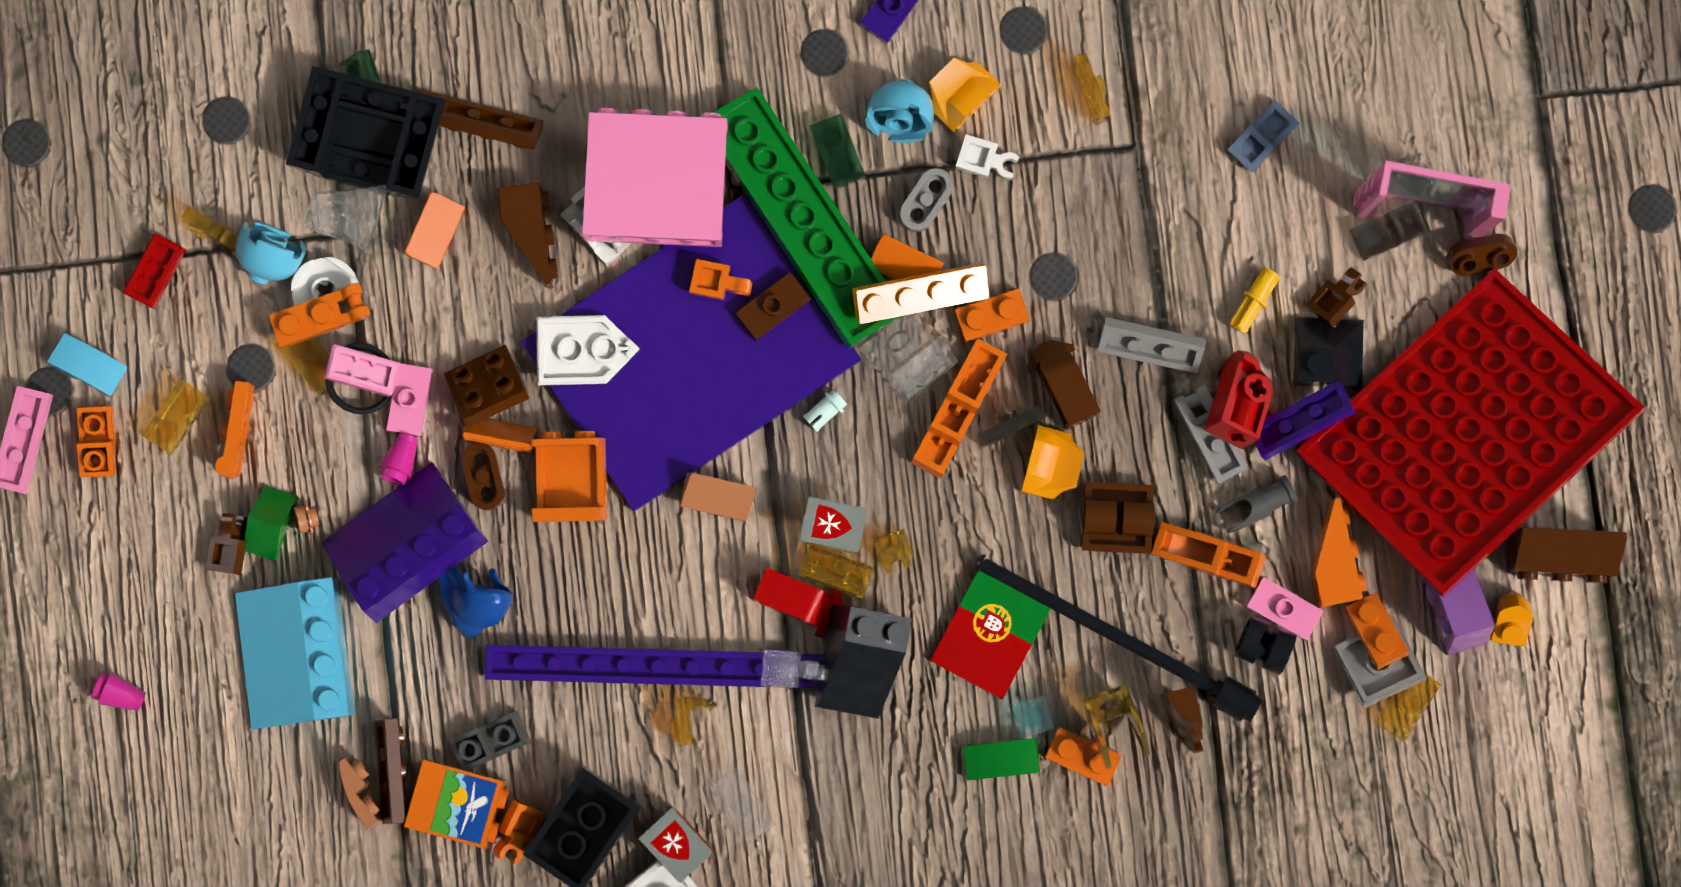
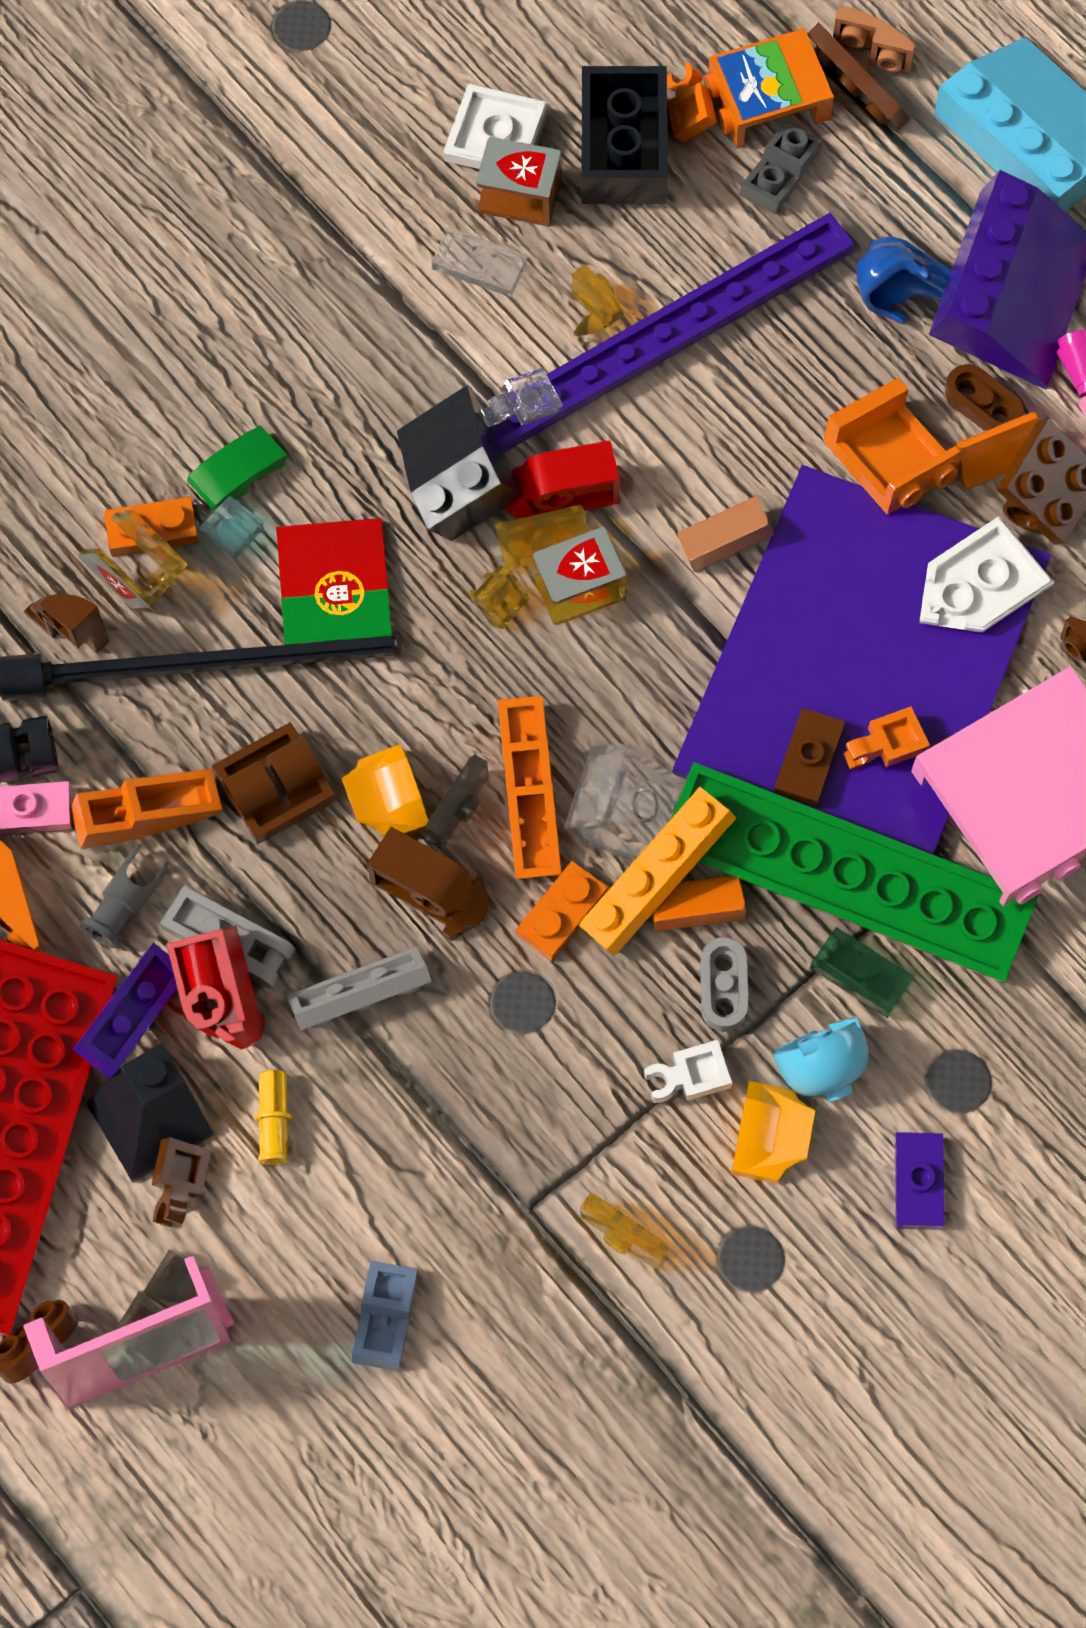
camera: 150 degrees right, 15 degrees down
(826, 408) = (671, 702): light aqua pin -> none

